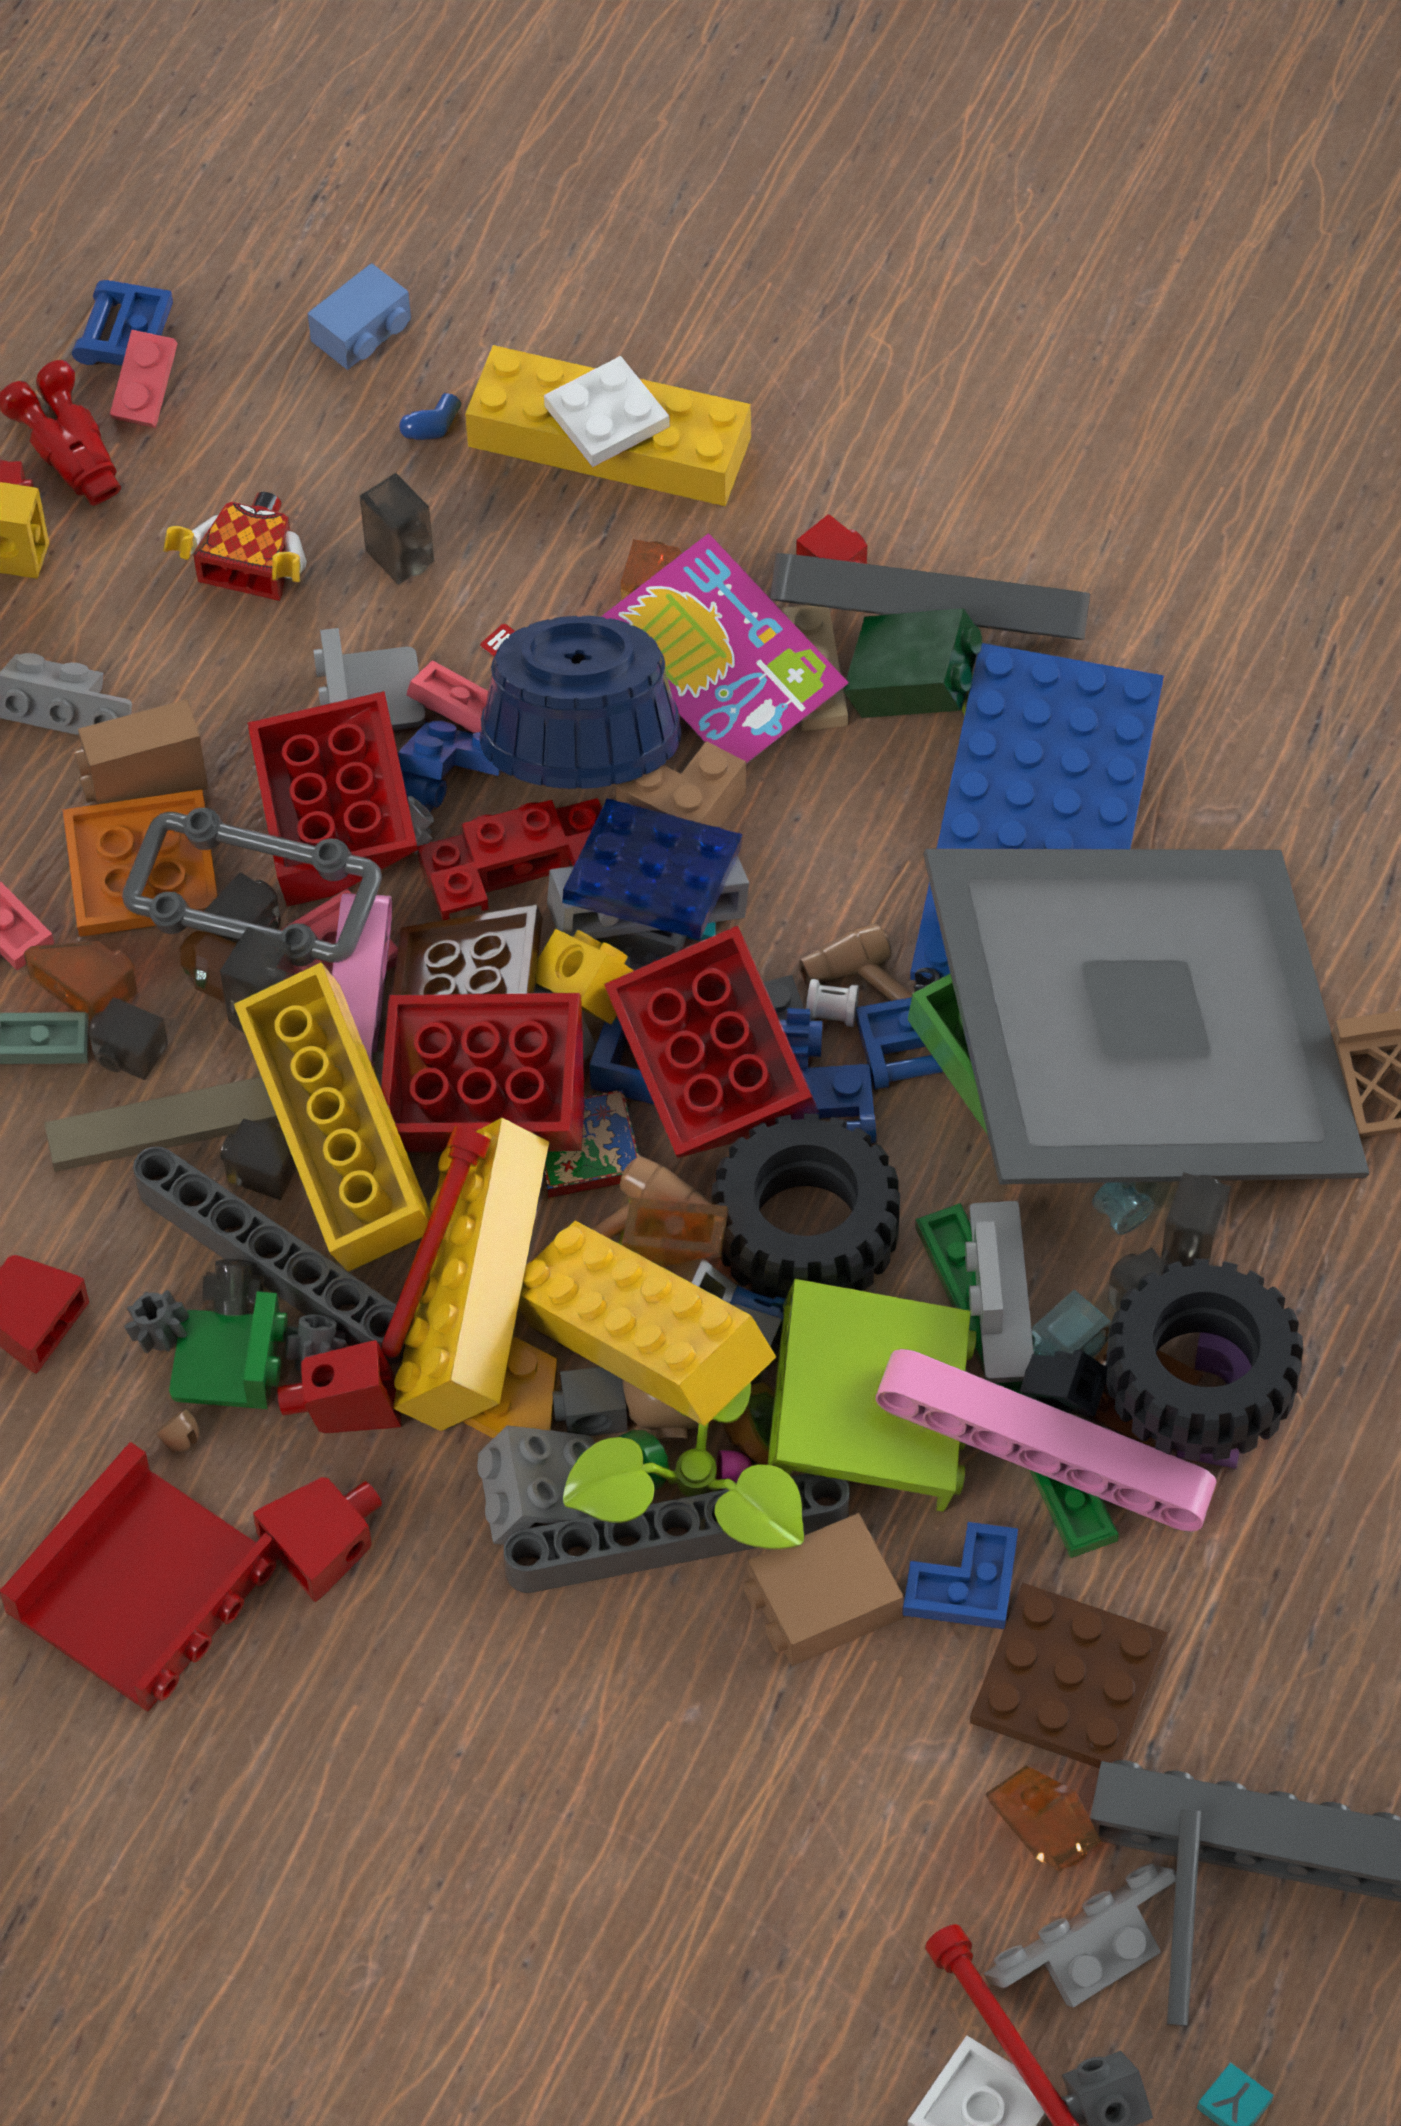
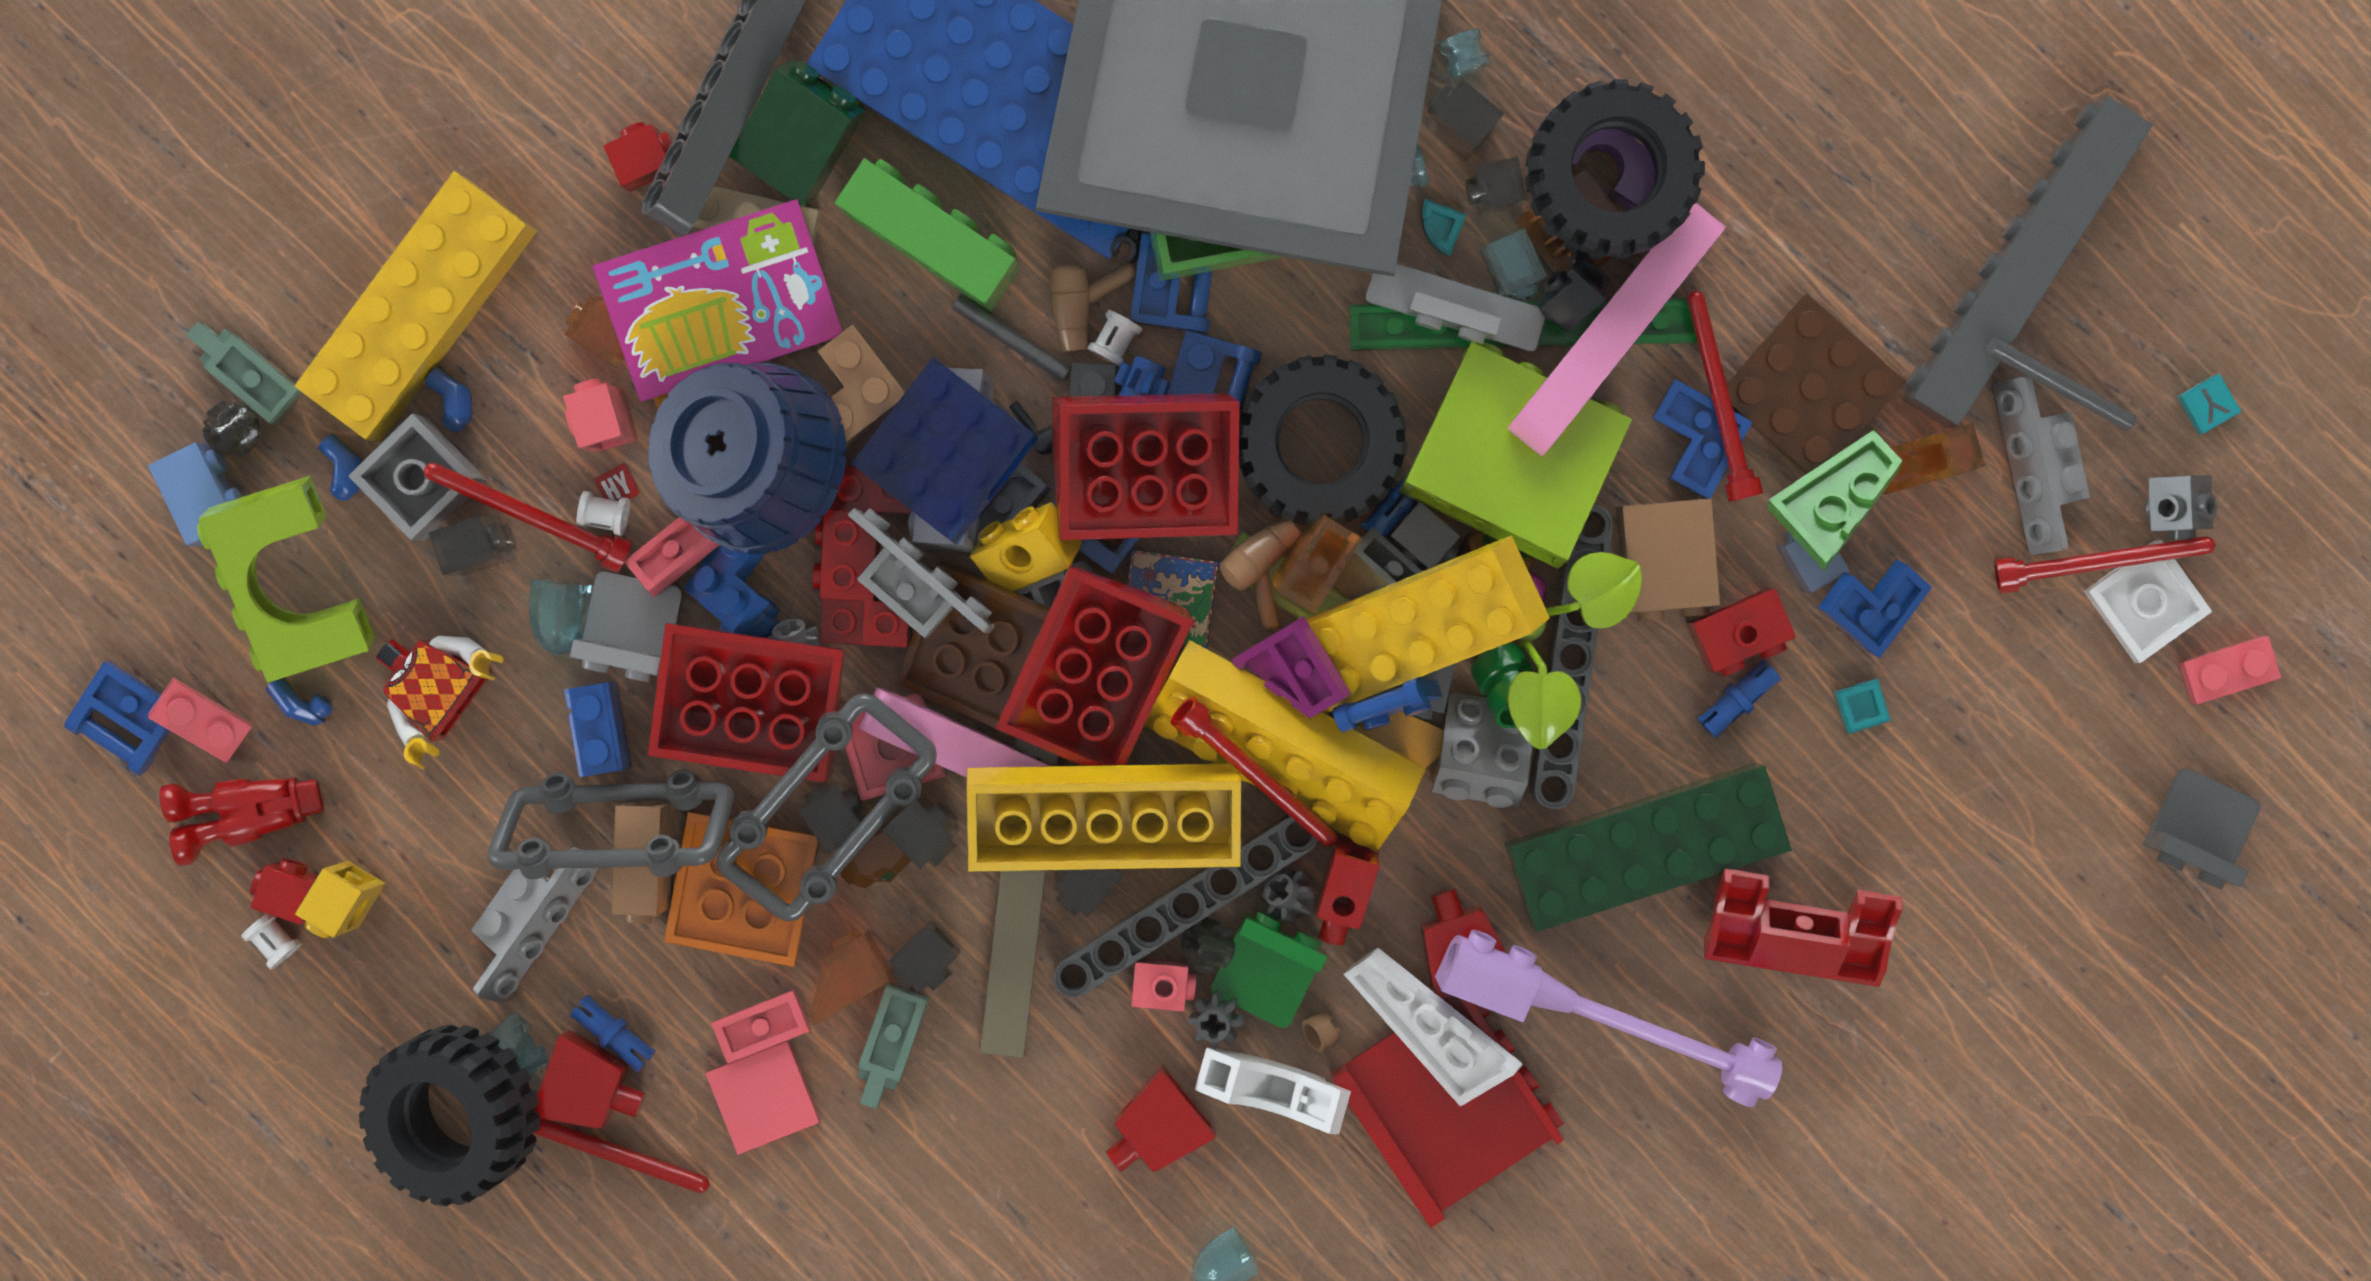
camera: 70 degrees left, 30 degrees up
(100, 1389) = (1273, 1087): none -> white arch
(153, 739) = (662, 852): none -> dark grey bar
(176, 1258) = (1162, 984): none -> coral brick
(184, 449) = (297, 708): none -> blue arm
(214, 1533) = (1436, 1033): none -> white wing
(257, 689) = (598, 728): none -> blue brick
(297, 1568) = (1514, 984): none -> lavender bar
(326, 343) = (279, 638): none -> lime arch
(362, 626) = (558, 613): none -> clear light blue brick
(432, 320) = (231, 428): none -> clear smoke gear
(439, 644) = (607, 549): none -> red piece
(450, 468) = (397, 482): none -> light grey brick
(455, 1858) = (1800, 937): none -> red bracket
(472, 632) = (603, 513): none -> white bush
(489, 317) = (245, 372): none -> sand green hinge
(500, 1675) = (1647, 846): none -> dark green brick
(506, 881) = (909, 586): none -> light grey bracket
(535, 486) = (456, 399): none -> blue arm
(554, 1340) = (1374, 712): none -> blue plate
(558, 1236) = (1296, 668): none -> magenta wing
(564, 582) = (599, 416): none -> coral brick
(606, 411) = (420, 309): white plate -> none
(698, 1720) = (1739, 698): none -> blue pin
(741, 1853) = (1861, 706): none -> teal tile
(773, 1691) = (1741, 631): none -> red brick
(794, 918) = (1011, 338): none -> flat silver bar
(842, 1820) = (1878, 615): none -> blue plate
(863, 801) = (928, 235): none -> bright green brick
(883, 1734) = (1805, 570): none -> sand blue brick
(935, 1626) = (1741, 480): none -> red piece
(959, 1720) = (1836, 497): none -> bright green wing
(1081, 1265) = (1441, 225): none -> teal tile
(1266, 1217) = (1464, 53): none -> clear light blue wheel

